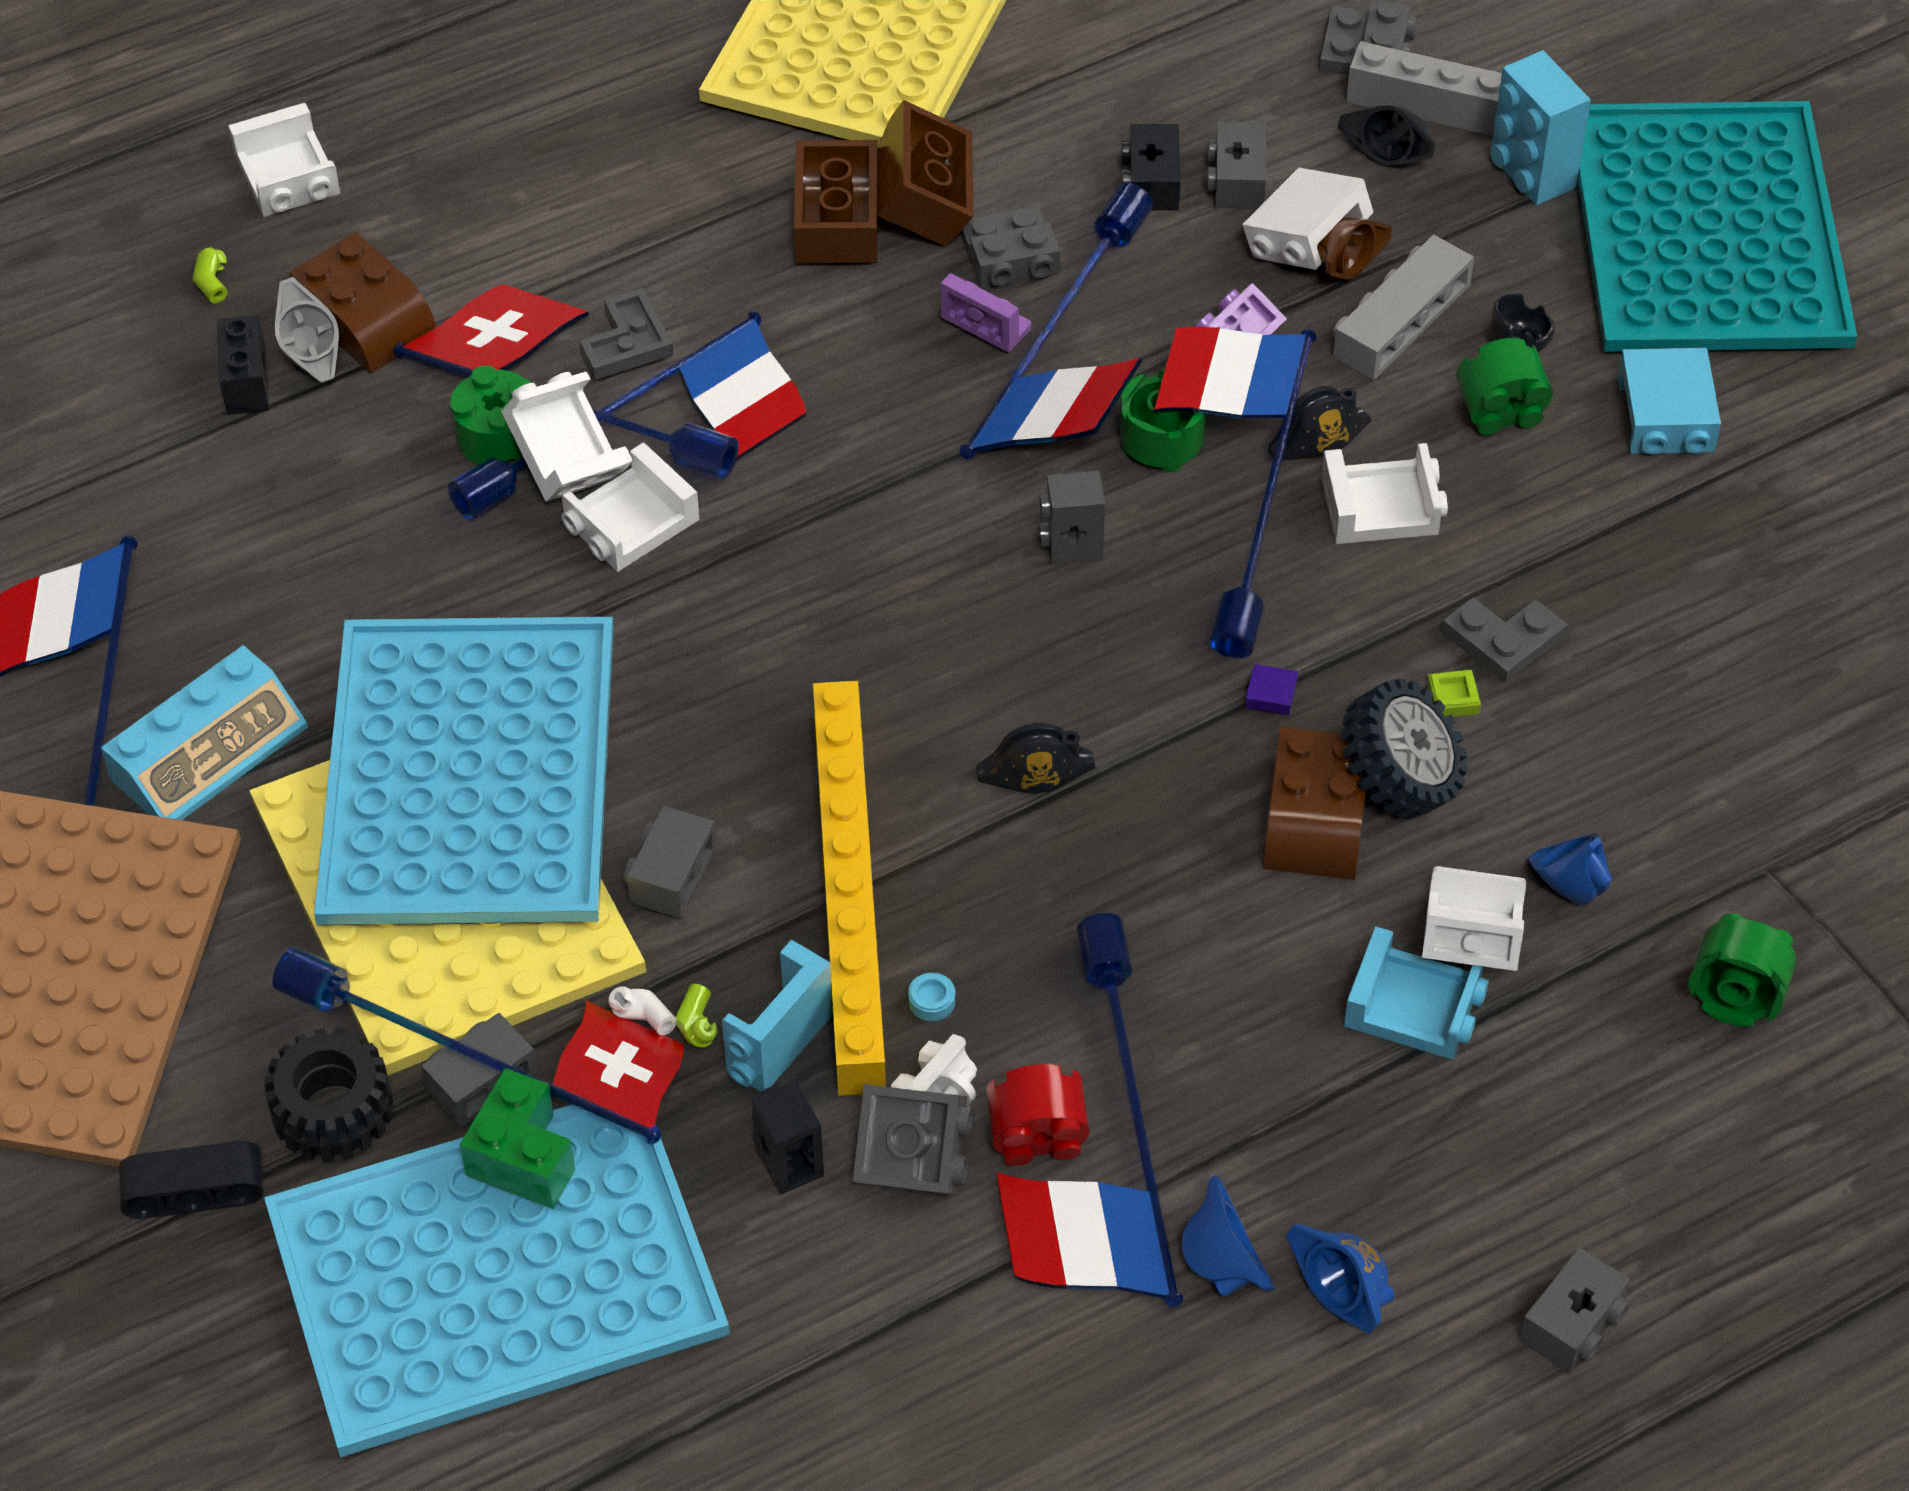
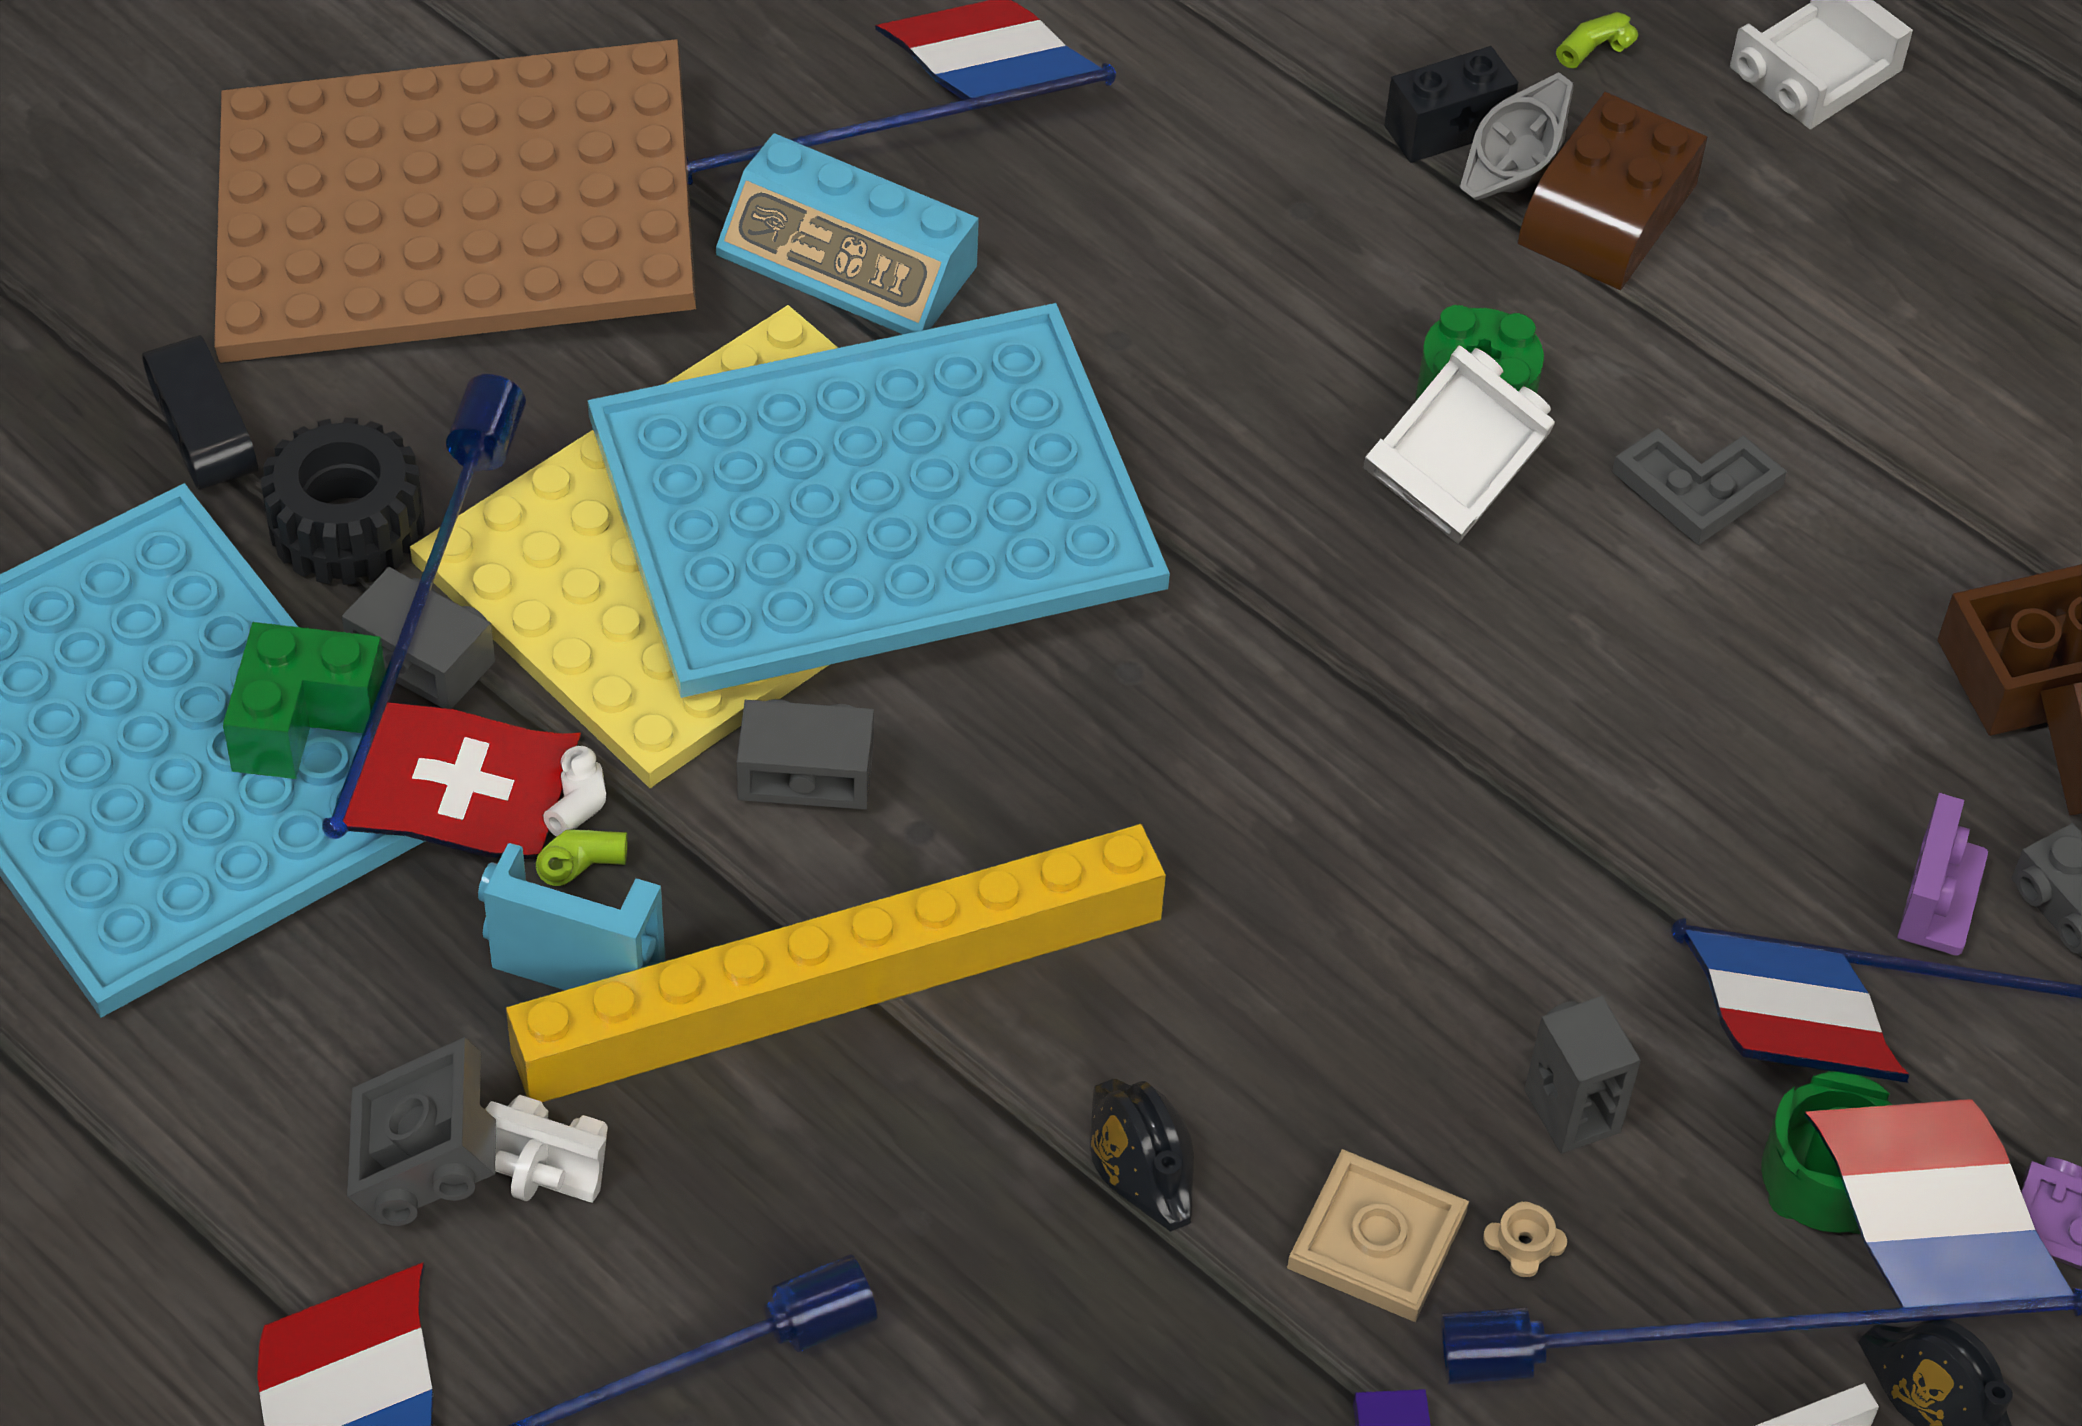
camera: 70 degrees right, 0 degrees up
(511, 325) = (1631, 345): flag -> none
(632, 510) = (1391, 566): white panel -> none
(731, 384) = (1662, 636): flag -> none
(787, 1136) = (384, 984): black brick -> none
(931, 996) = (696, 1117): medium azure tile -> none
(1037, 1114) = (496, 1275): red brick -> none
(1135, 661) = (1378, 1235): none -> tan tile
(1162, 579) = (1528, 1221): none -> tan plate

